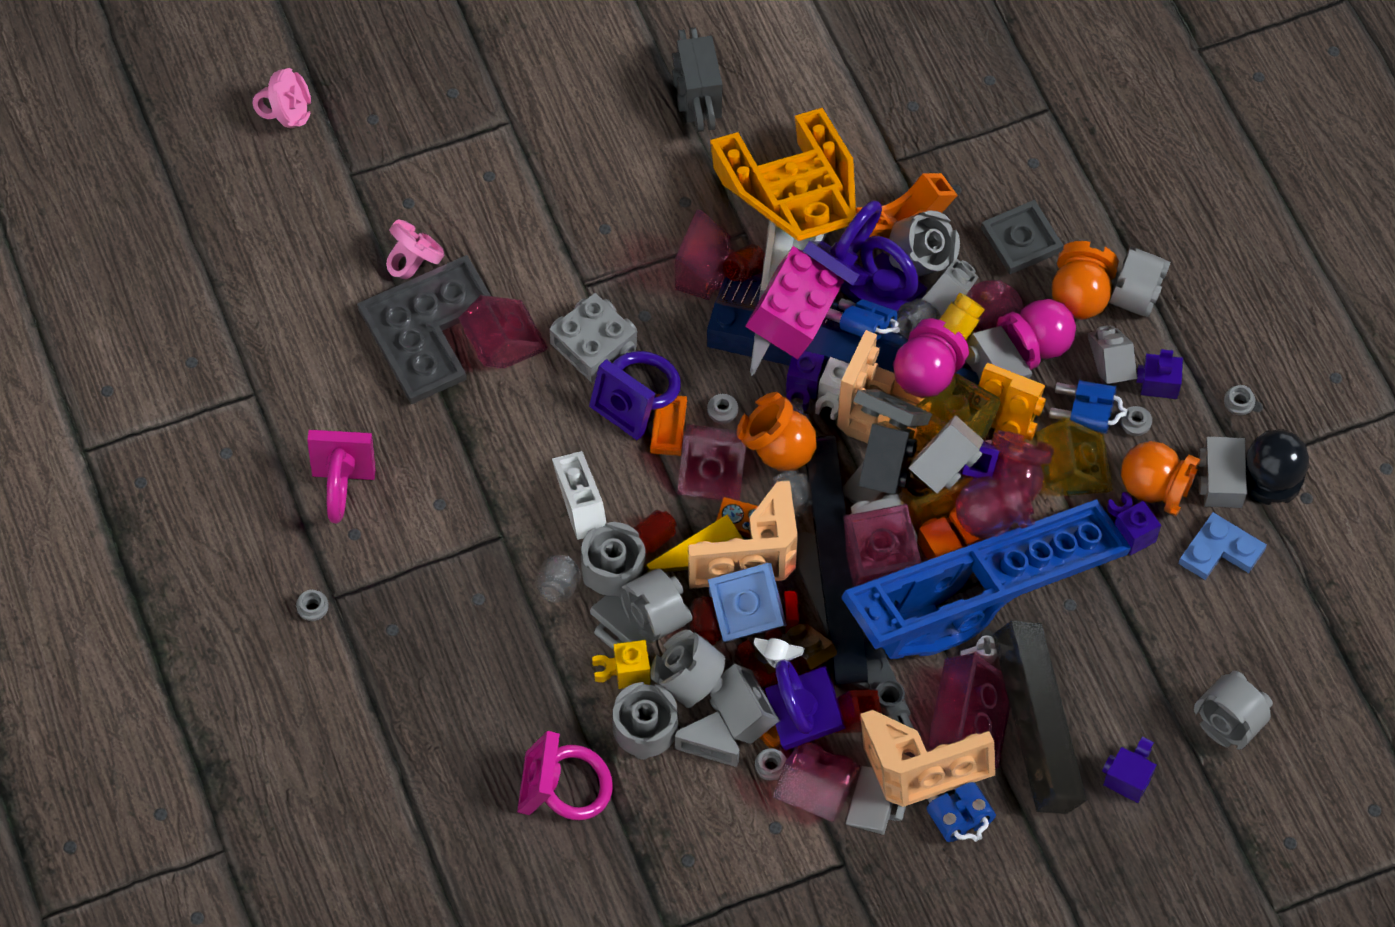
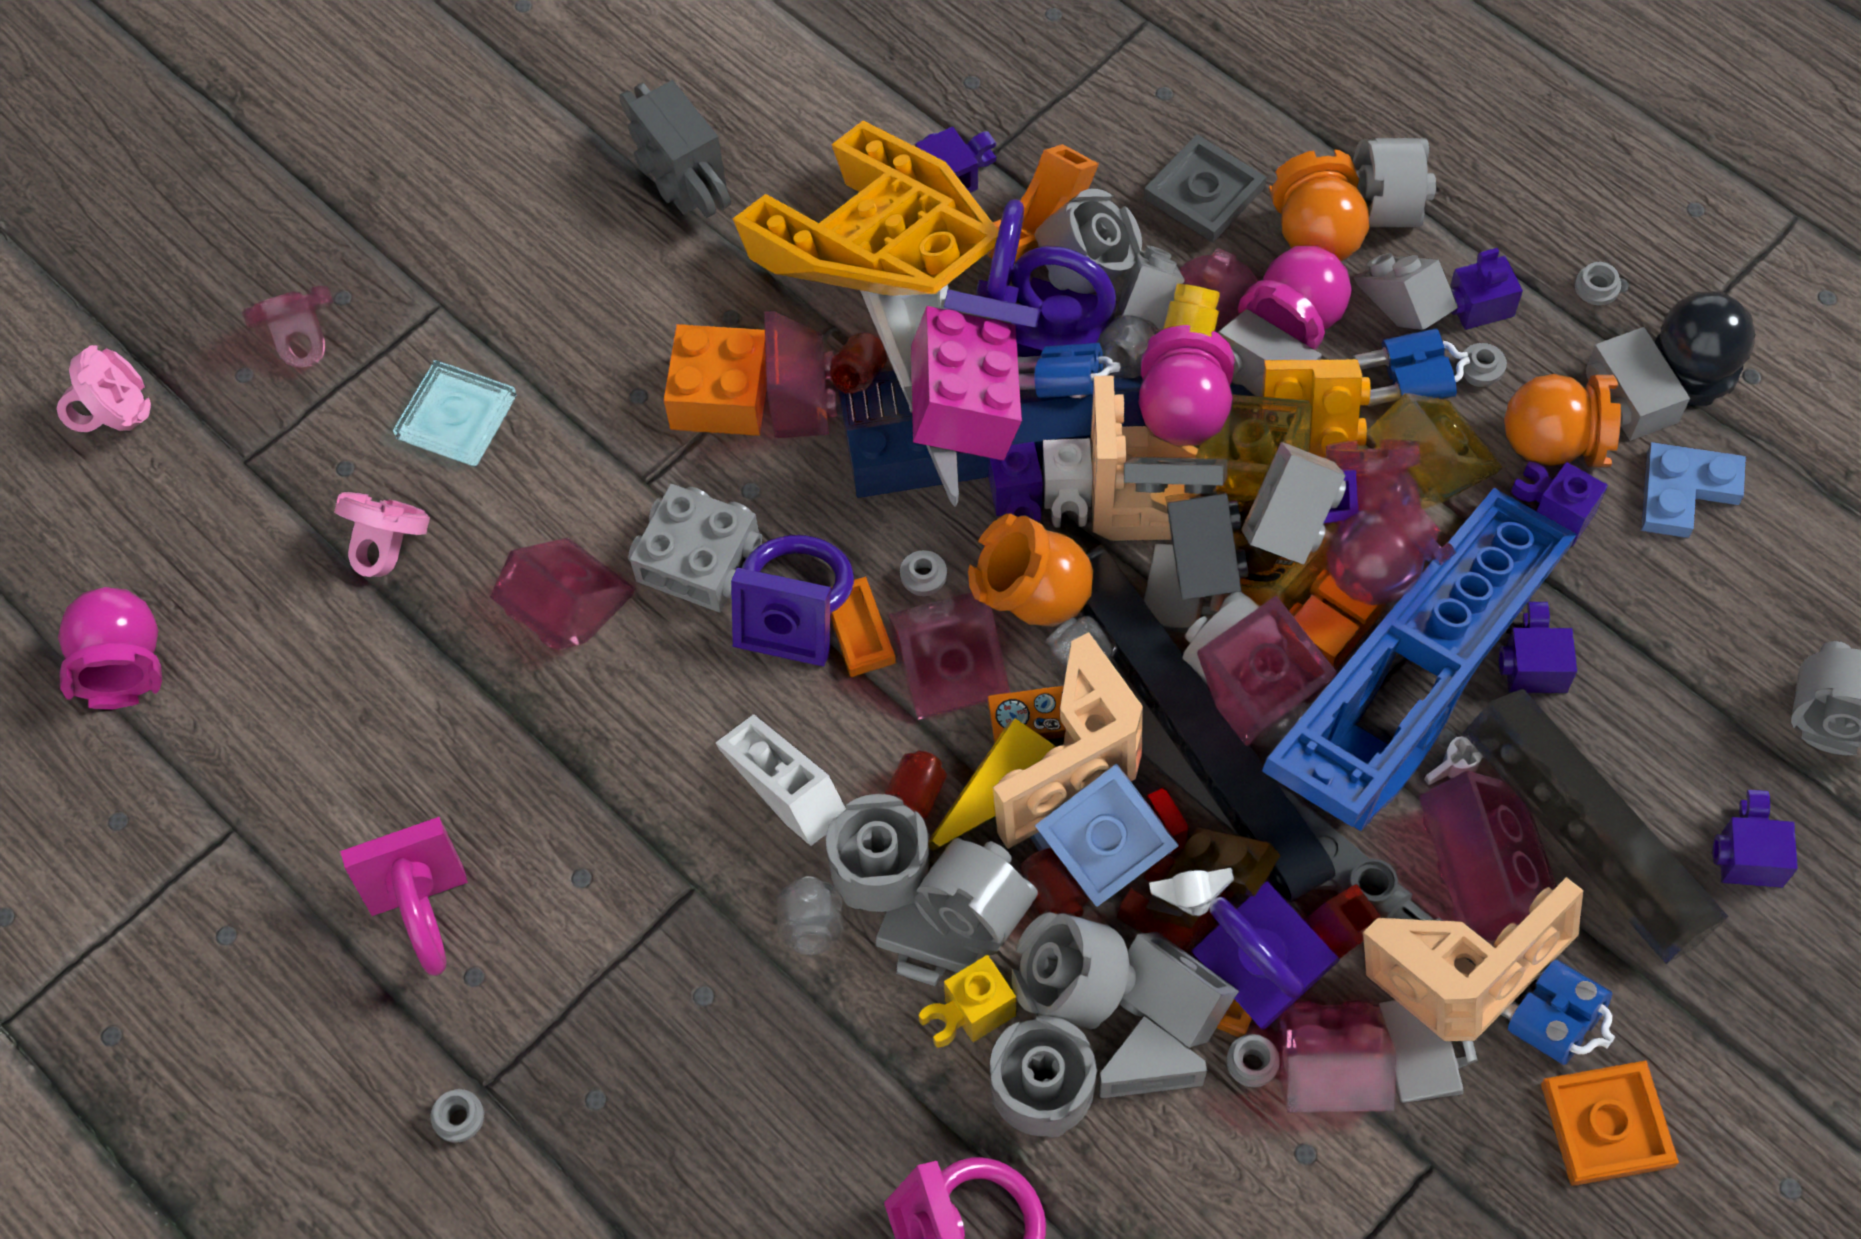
camera: 20 degrees left, 0 degrees up
(226, 259) = (109, 649): none -> dark pink tile
(411, 321) = (423, 632): flat silver plate -> none
(414, 95) = (290, 315): none -> clear pink tile
(488, 195) = (455, 413): none -> clear light blue tile
(652, 238) = (716, 380): none -> orange brick
(869, 156) = (961, 157): none -> dark purple brick
(956, 884) = (1609, 1123): none -> orange tile
(1064, 609) = (1538, 656): none -> dark purple brick

